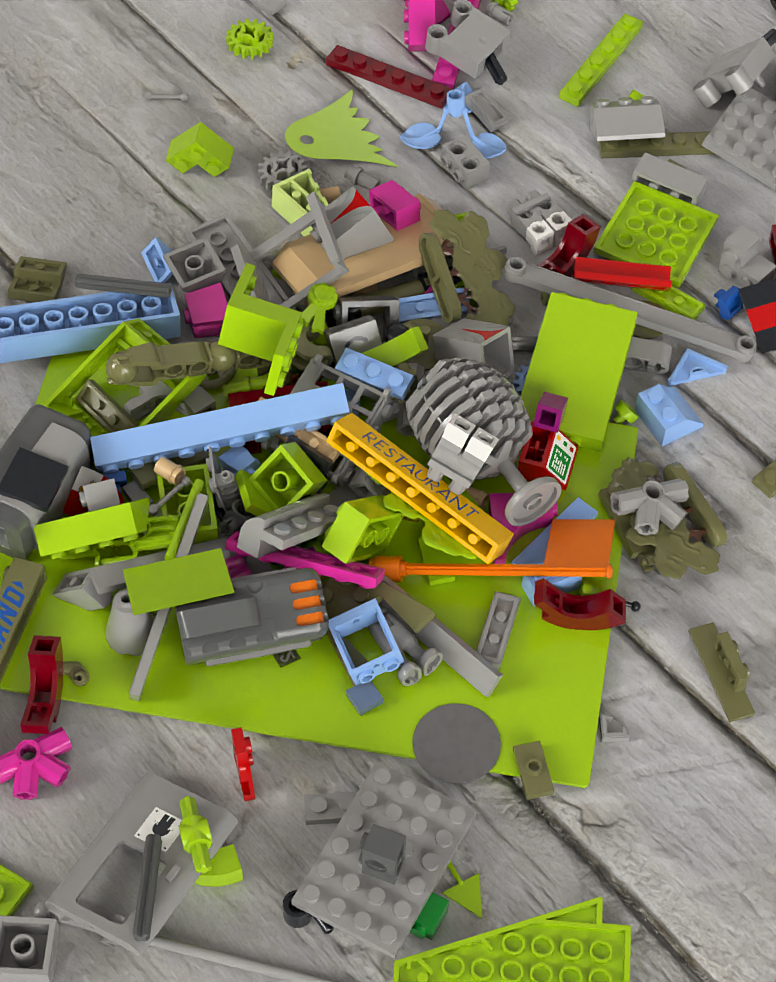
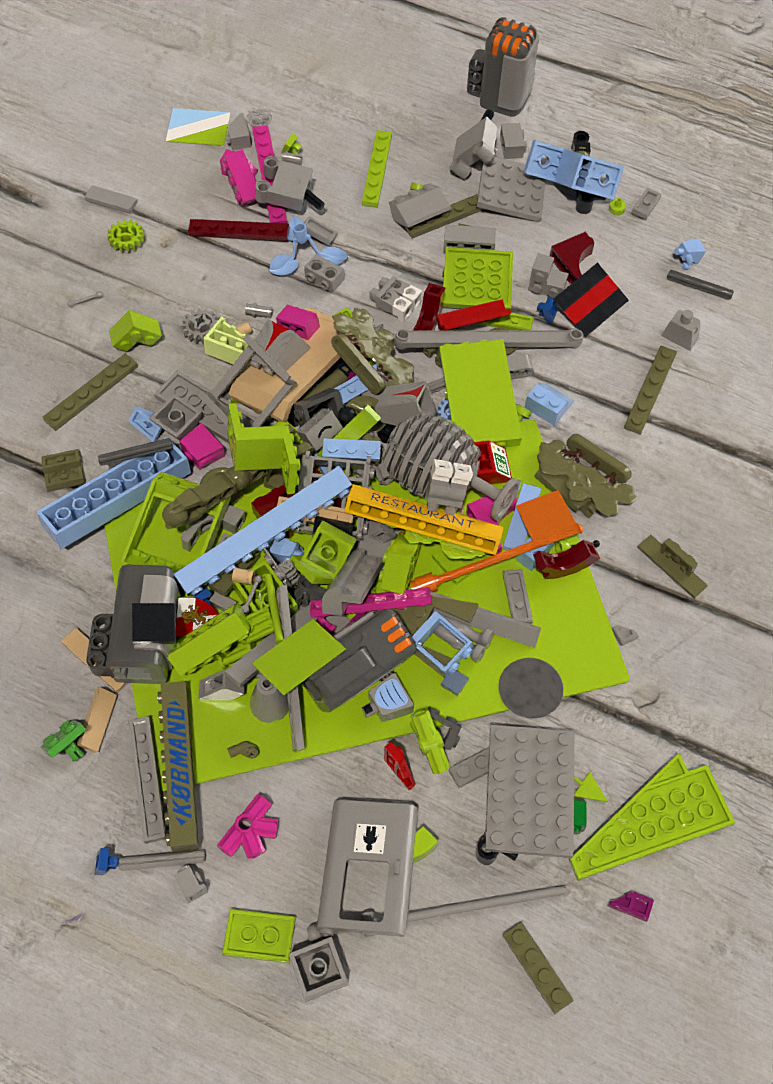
camera: 25 degrees left, 5 degrees up
(46, 684) = (231, 770): dark red arch -> none
(99, 495) = (203, 614): light grey brick -> none
(104, 408) = (168, 548): olive tile -> none
(115, 203) = (90, 392): none -> olive plate
(147, 888) = (387, 886): dark grey axle -> none
(195, 834) = (399, 832): lime axle -> none
(246, 384) = (261, 490): lime pin -> none
(270, 684) = (388, 700): none -> torso
(291, 748) = (429, 741): none -> lime piece
(321, 298) = (286, 409): lime piece -> none
(325, 759) = (451, 738): none -> dark grey bracket
(335, 135) = (224, 285): lime piece -> none
(382, 853) = (537, 790): dark grey brick -> none
(533, 770) = (591, 685): olive plate -> none
(550, 412) = (482, 431): magenta brick -> none
(652, 503) = (578, 470): light grey piece -> none
(694, 367) = (548, 362): light blue tile -> none

